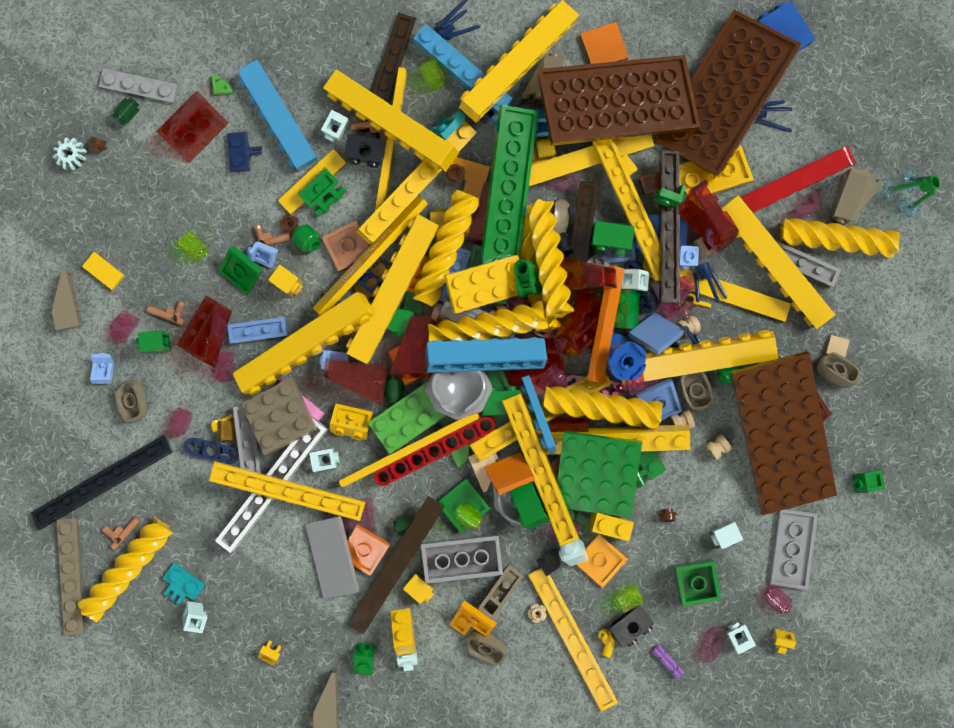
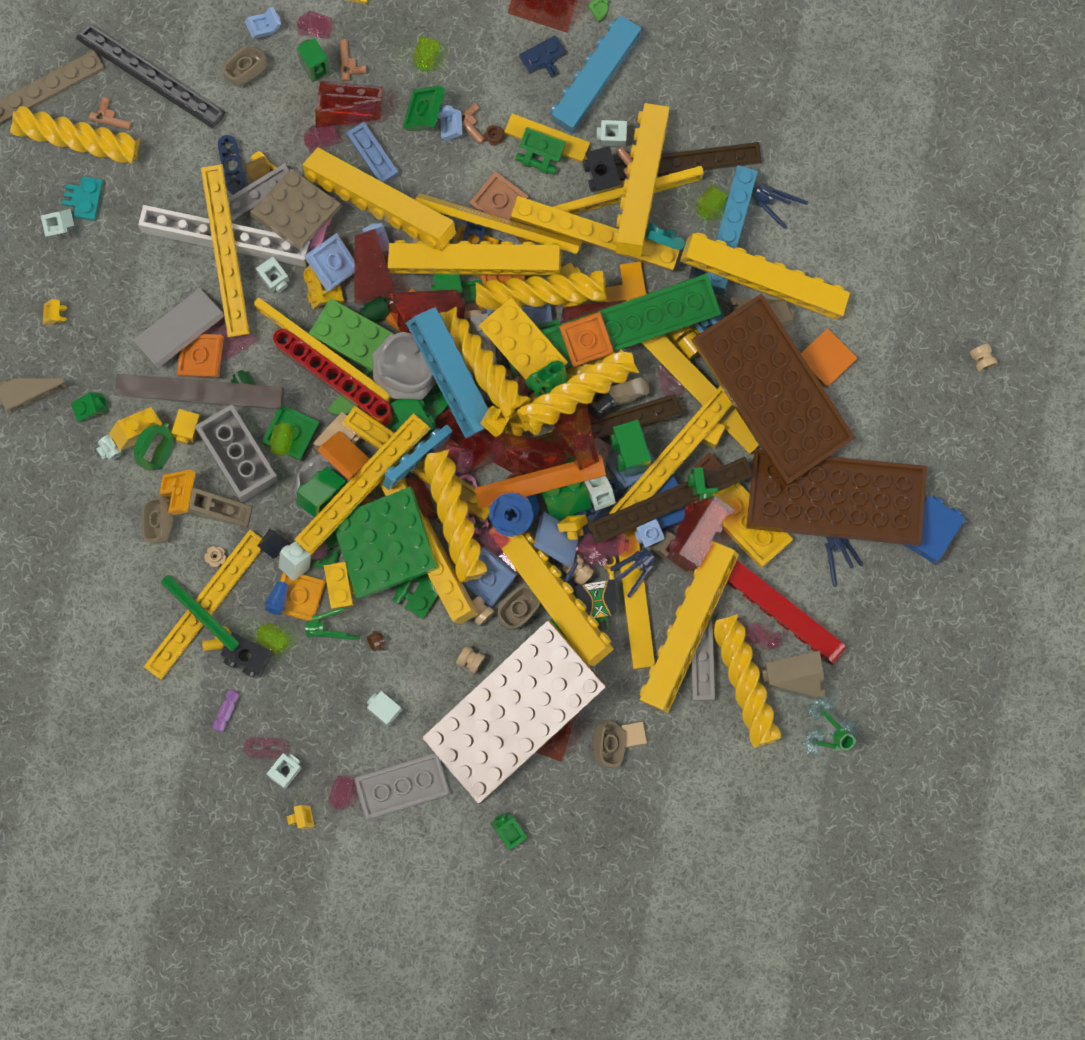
camera: 60 degrees right, 10 degrees down
(180, 422) = (245, 121): clear pink brick -> none
(286, 281) = (434, 156): yellow brick -> none
(306, 238) = (486, 157): green head -> none
(336, 407) = (331, 262): none -> light blue tile
(430, 619) = (160, 453): none -> green piece
(456, 178) = (627, 266): reddish brown plate -> none
(506, 230) = (586, 339): none -> orange tile
(544, 338) = (494, 421): none -> yellow tile
(580, 648) = (200, 613): none -> green axle
(598, 580) = (277, 598): none -> blue cone
(637, 559) = (317, 628): none -> green plant
(650, 314) = (573, 526): none -> yellow tile
(697, 582) = (321, 699): green brick -> none
(719, 323) = (599, 600): none -> black torso

